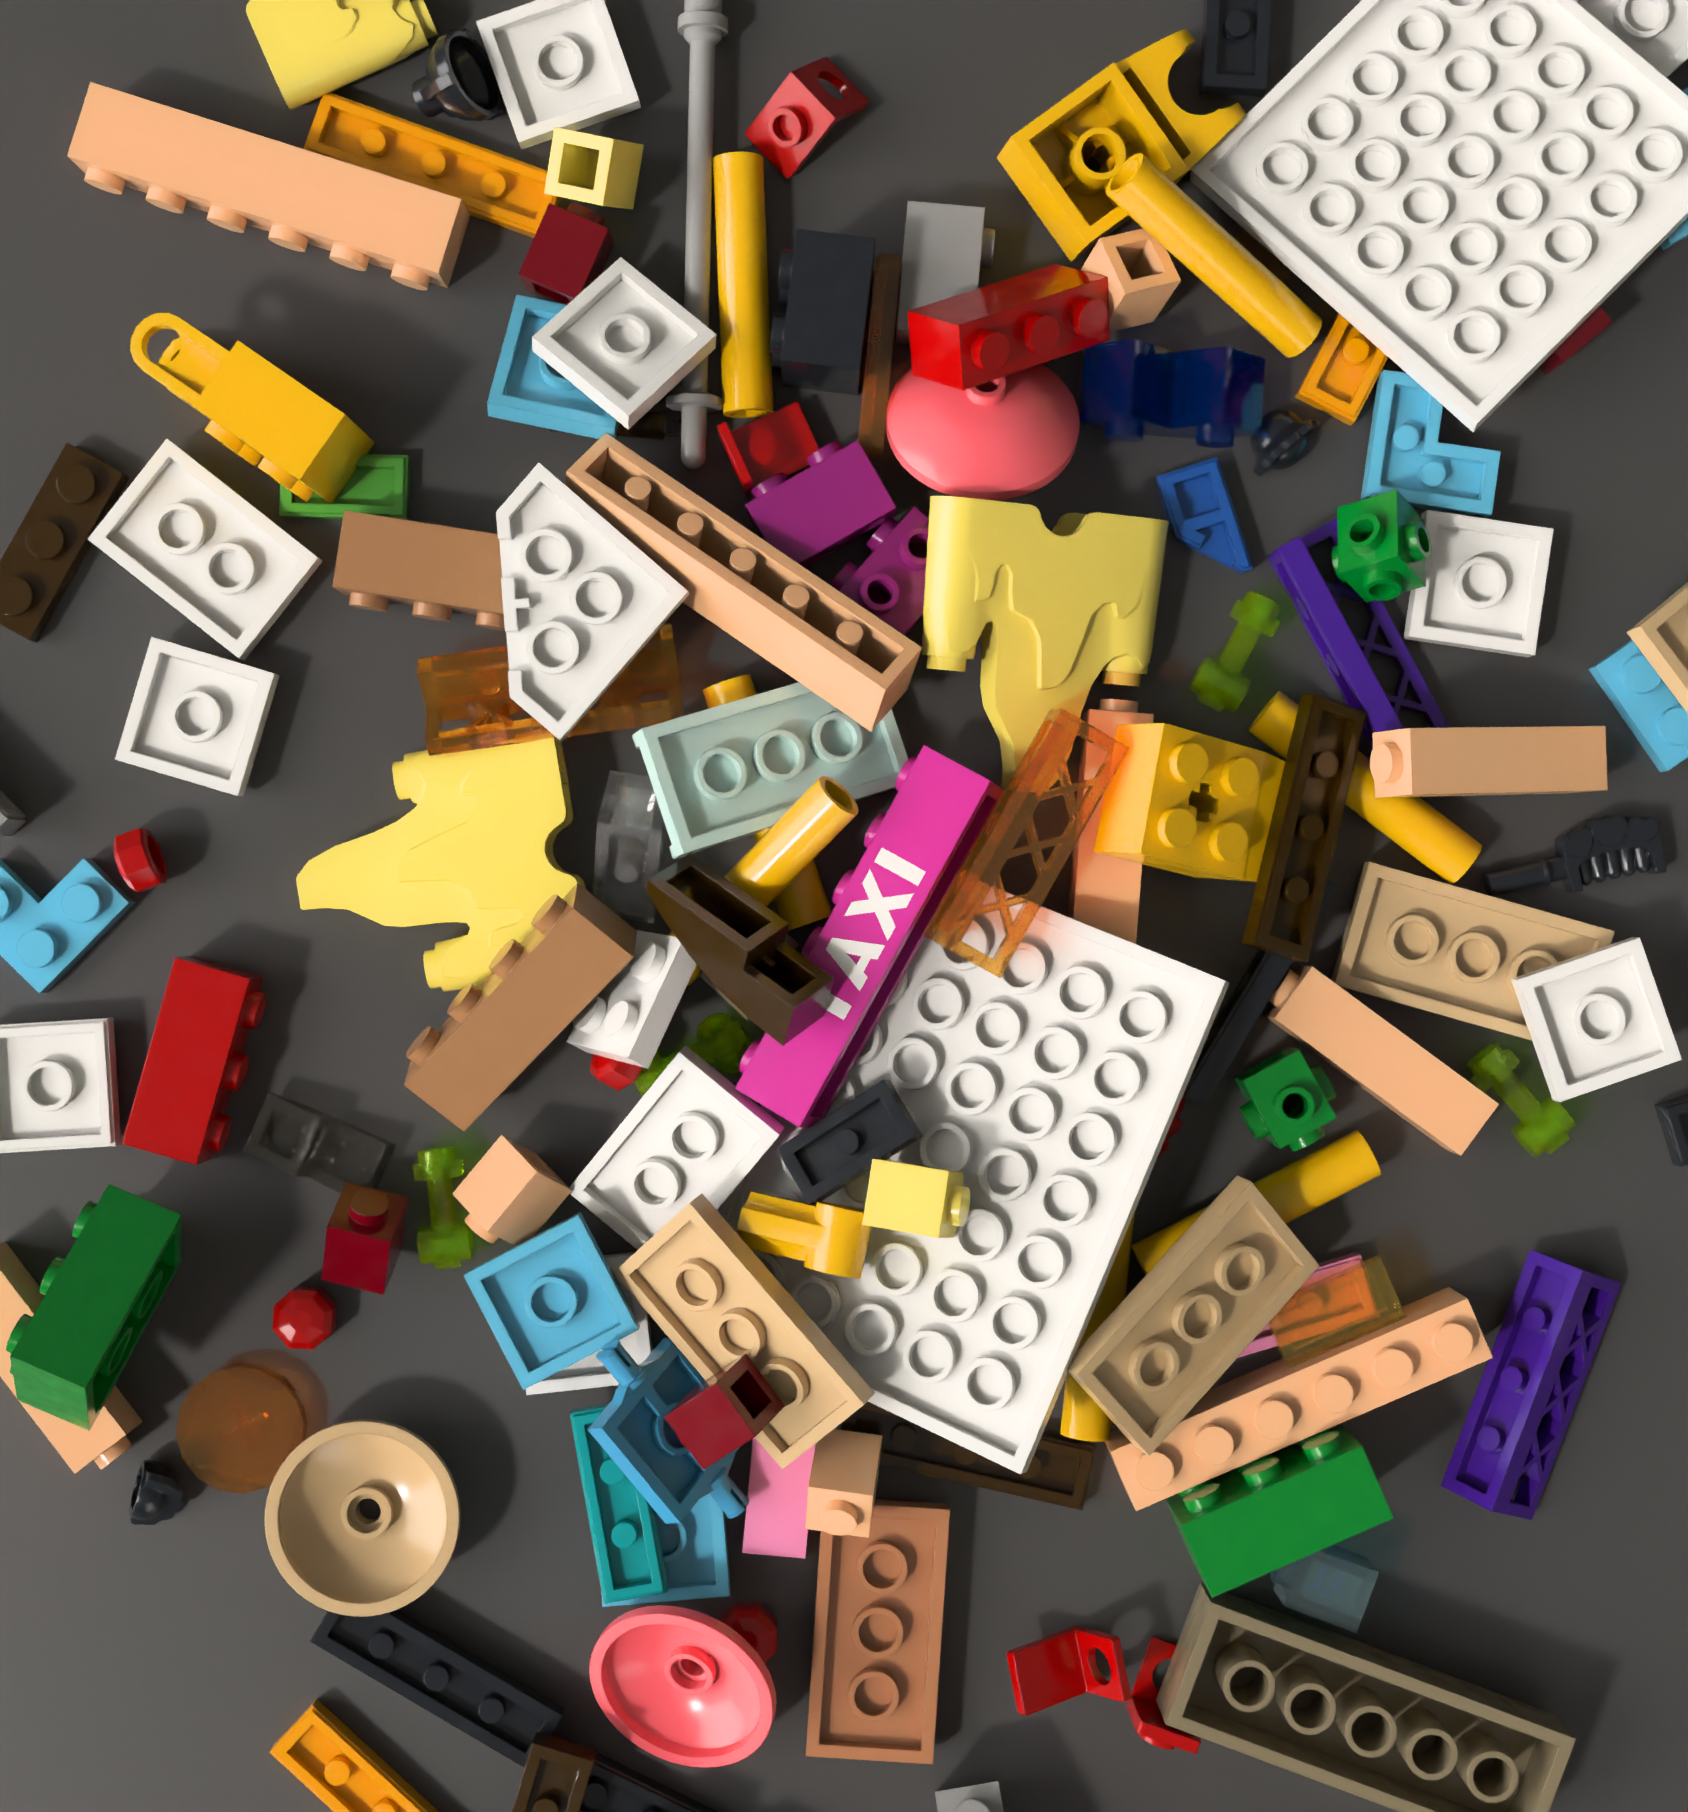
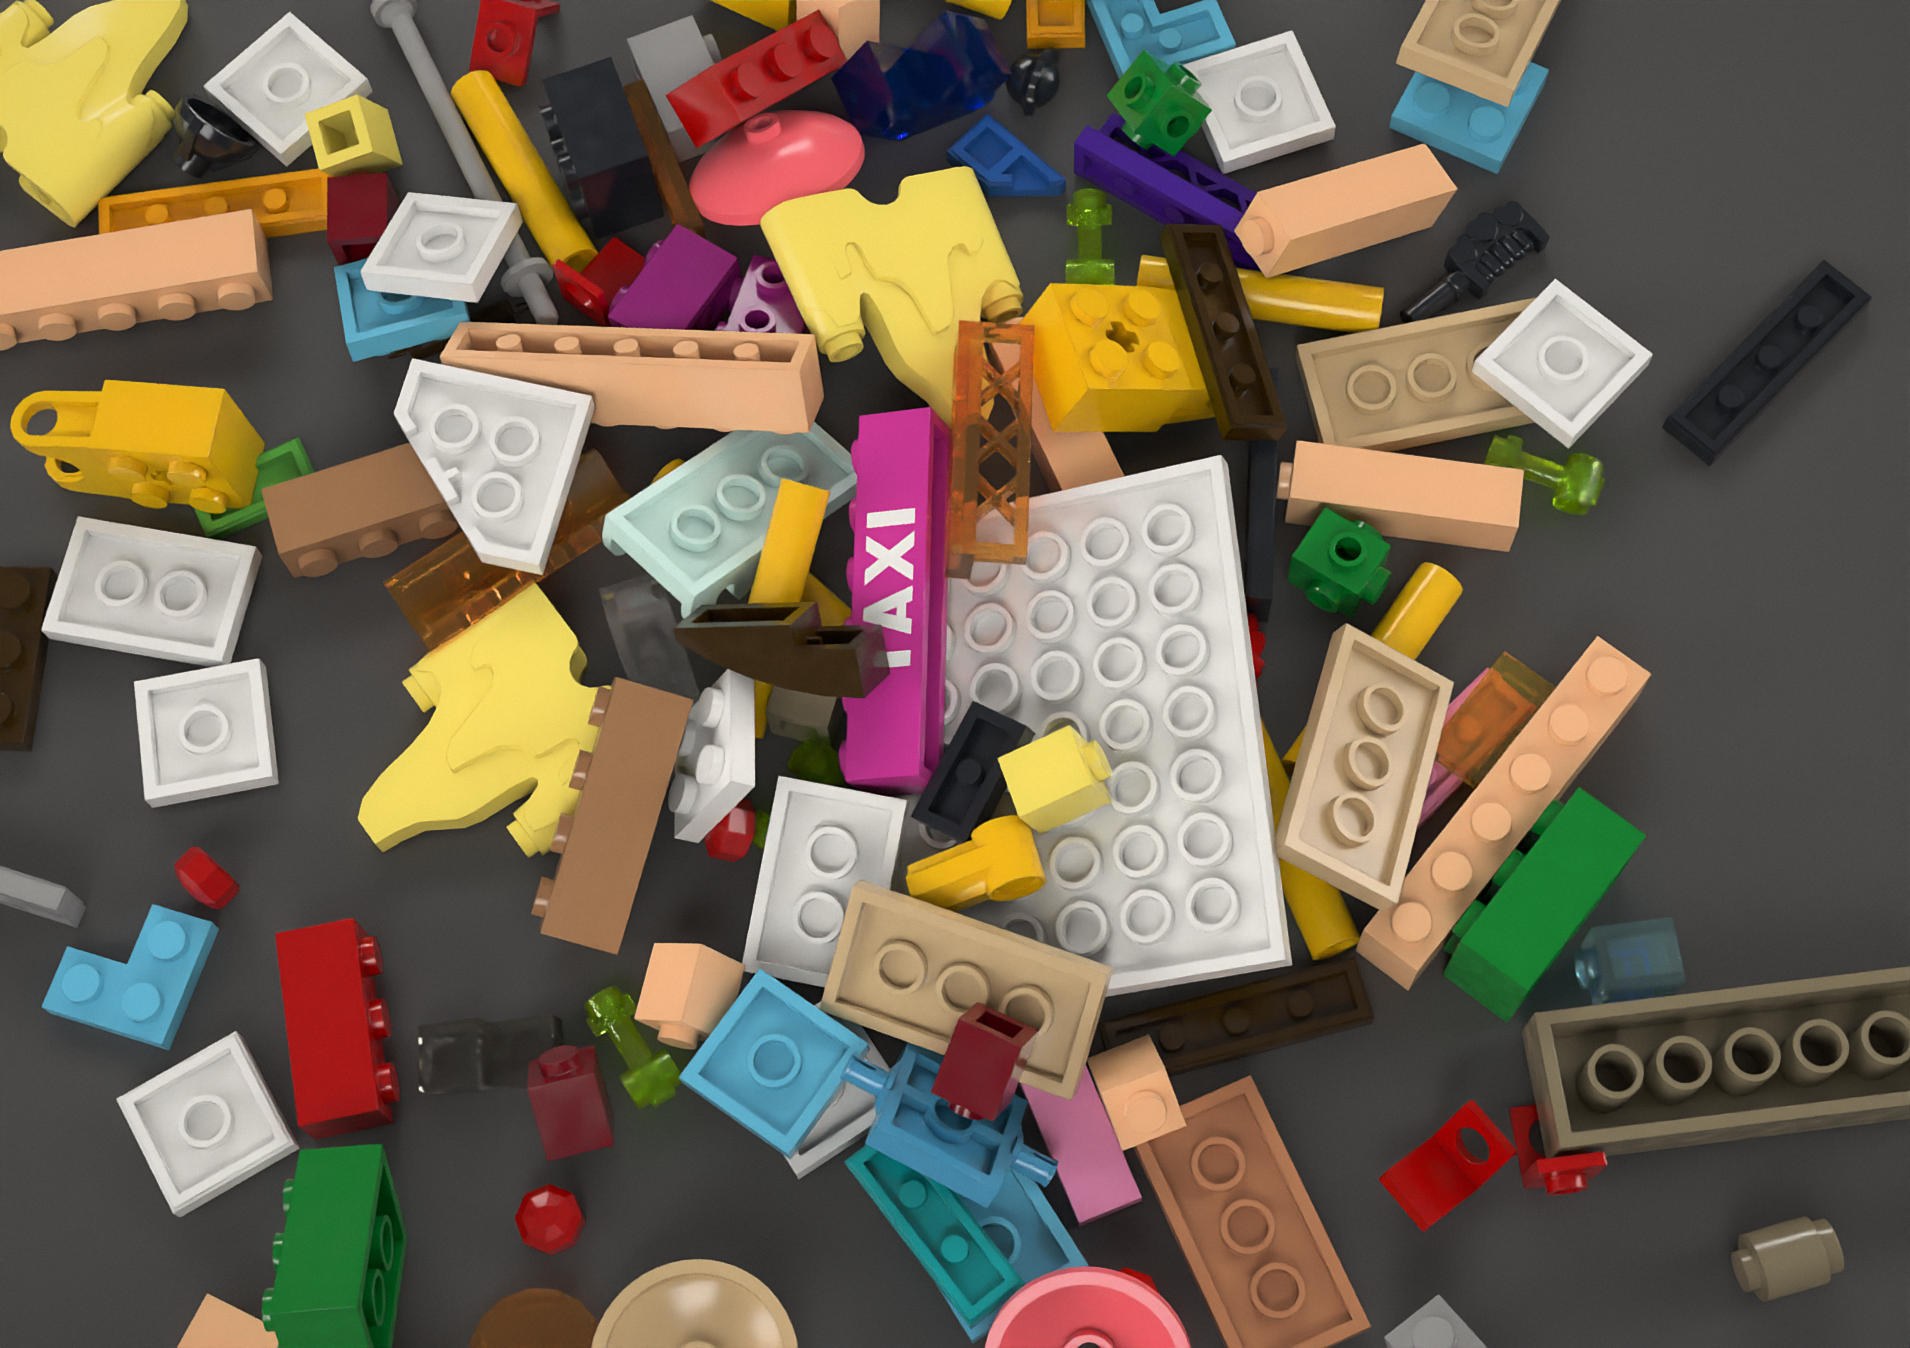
camera: 25 degrees left, 20 degrees down
(1525, 1384) = (1698, 701): dark purple fence -> none

